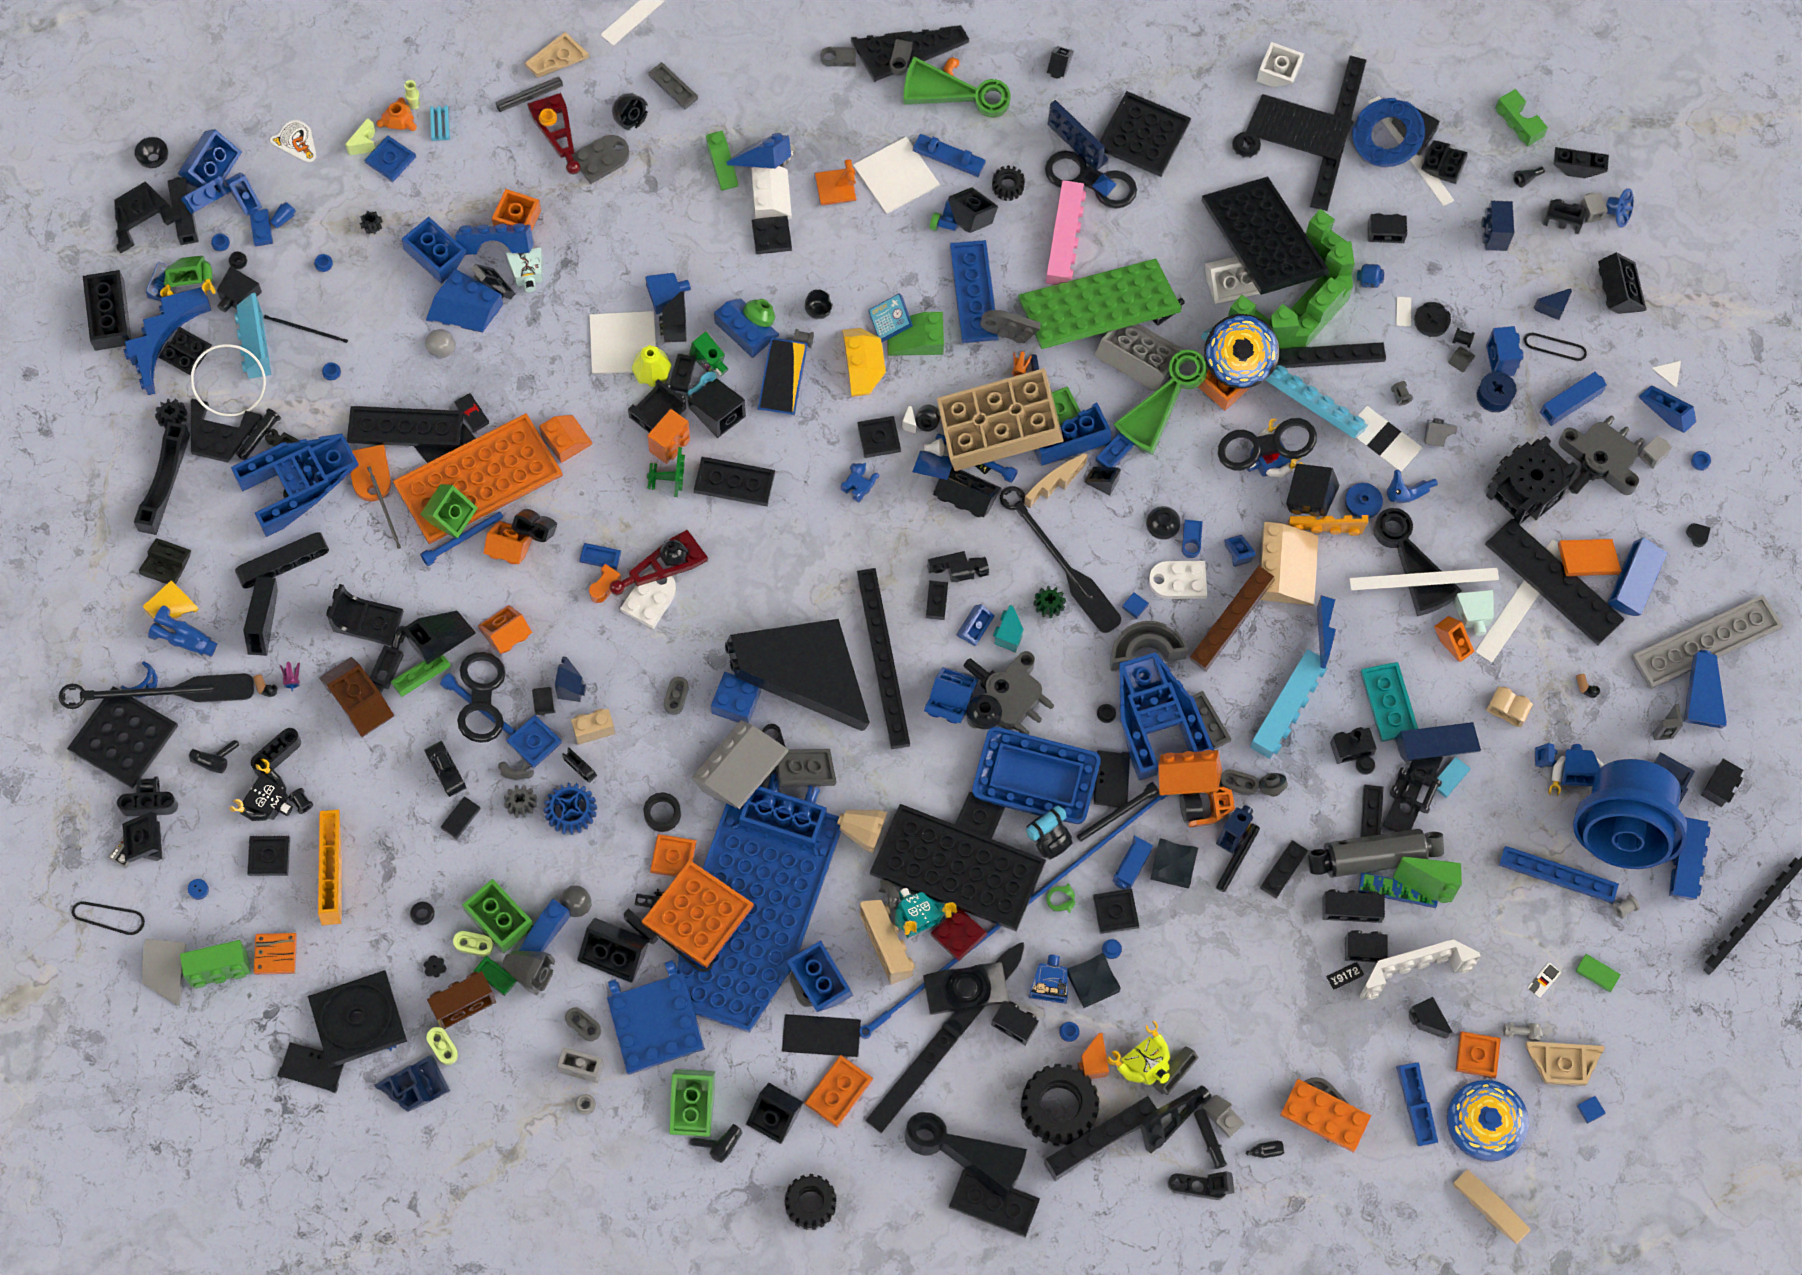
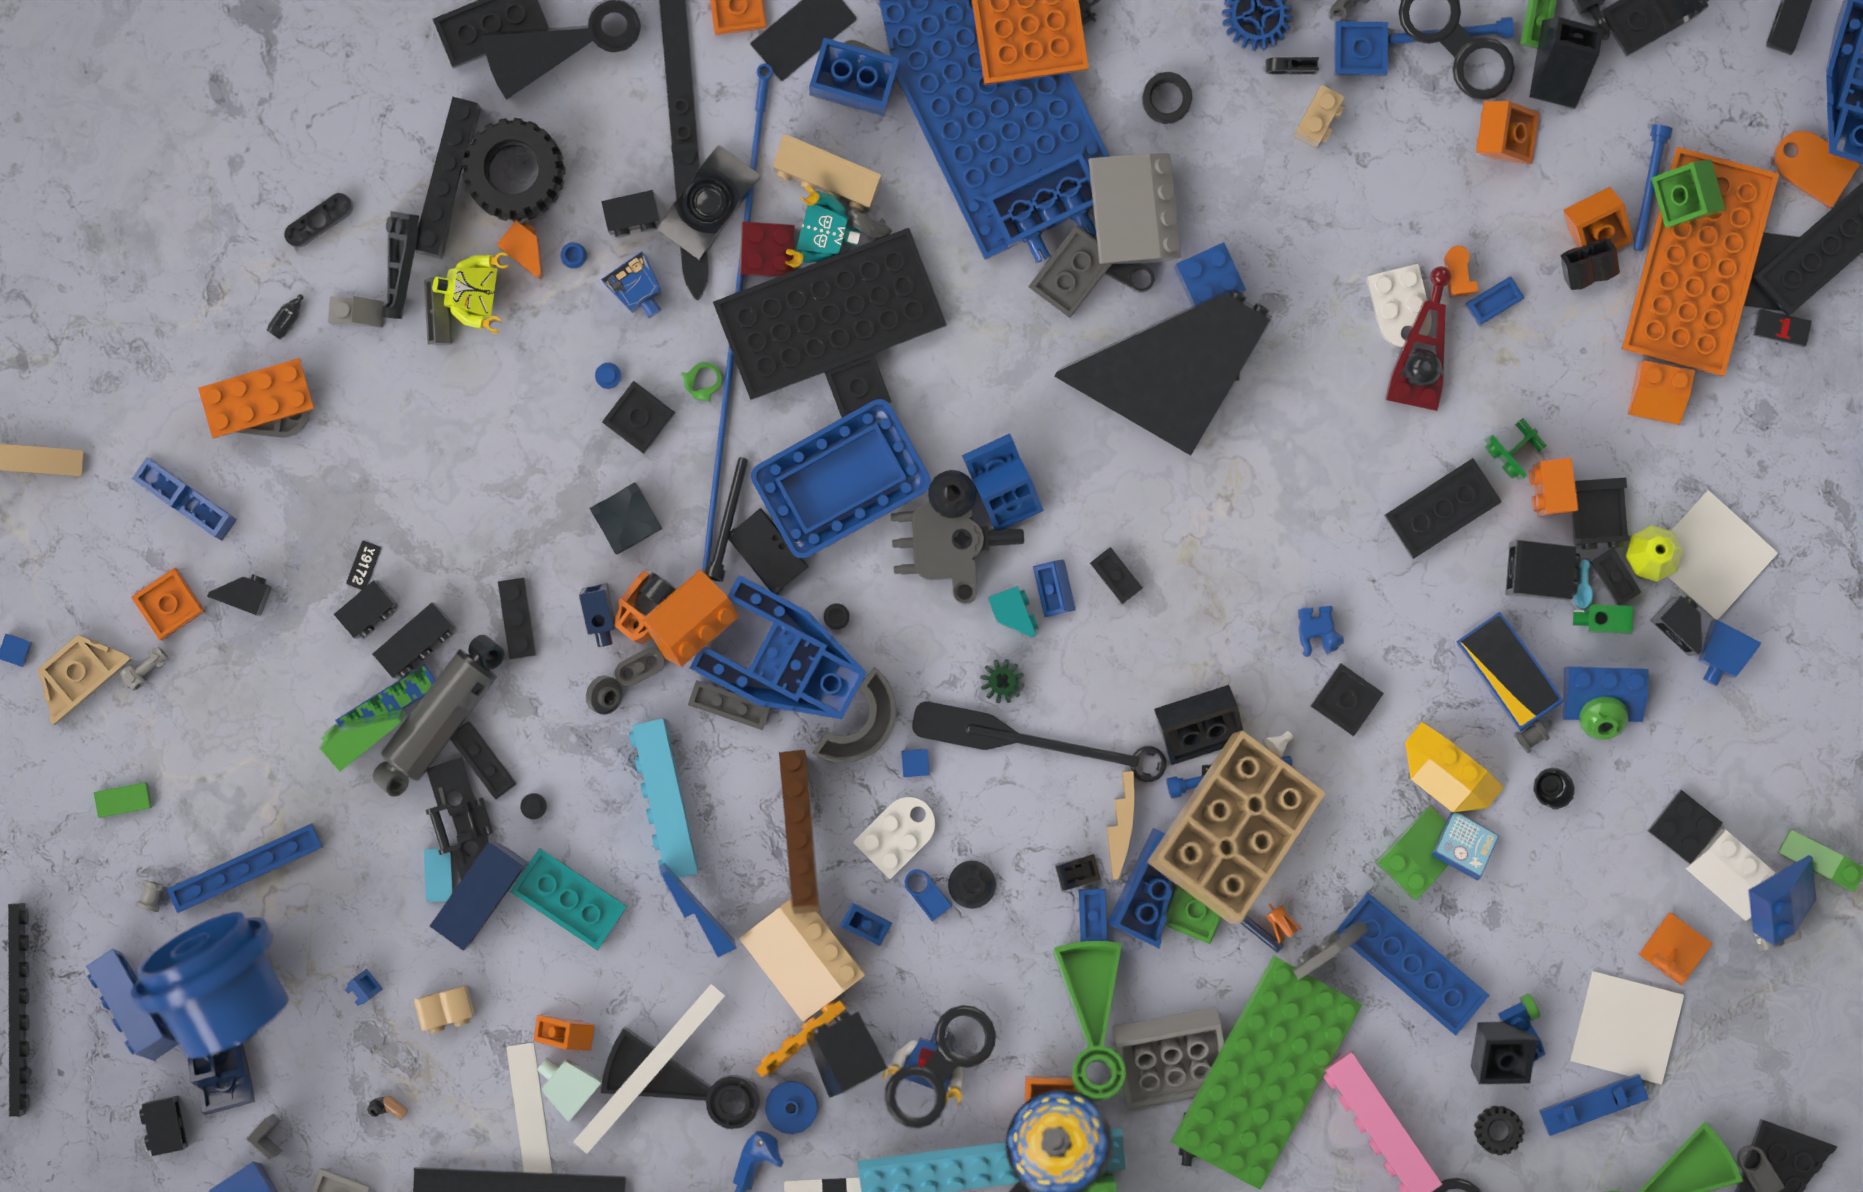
camera: 145 degrees right, 20 degrees up
(384, 507) = (1759, 141): dark grey piece -> none
(543, 701) = (1391, 94): black bracket -> none
(569, 682) = (1389, 138): dark blue slope -> none
(671, 855) = (1114, 67): orange tile -> none
(676, 697) = (1272, 227): dark grey plate -> none
(844, 56) = (1822, 1119): dark grey piece -> none
(862, 826) = (957, 262): tan cone -> none
(883, 659) = (1110, 462): black plate -> none
(909, 421) = (1333, 746): white slope -> none
(927, 418) = (1316, 765): black head -> none
(932, 465) = (1258, 712): blue sticker -> none
(958, 566) = (1126, 631): black plate -> none
(1050, 833) = (769, 429): black piece -> none
(1093, 980) = (595, 324): black brick -> none
(1132, 863) = (665, 479): blue window -> none
(1210, 1139) = (347, 276): black axle -> none
(1221, 1183) = (296, 240): black slope -> none
(1238, 857) = (570, 584): black axle -> none
(1352, 745) = (562, 815): black brick -> none
(1461, 958) = (323, 572): white slope -> none
(1487, 1120) = (103, 545): dish -> none
(1544, 980) = (169, 744): sticker -> none
(1575, 768) = (318, 1001): blue torso -> none

